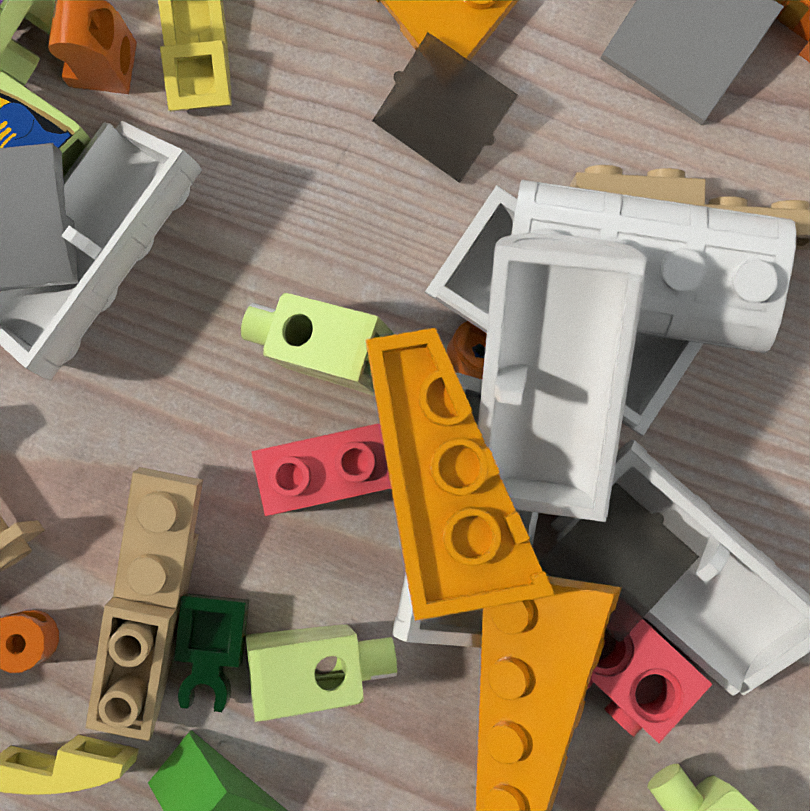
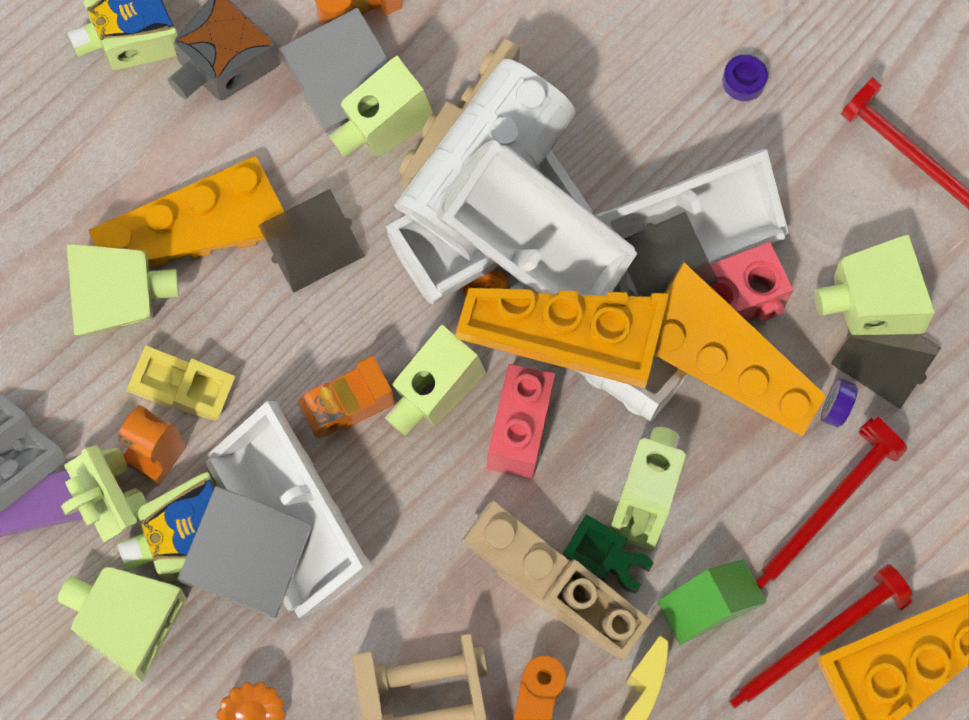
camera: 70 degrees left, 15 degrees down
(262, 247) = (347, 399): none -> orange leg
(654, 106) = (383, 111): none -> yellowish green torso

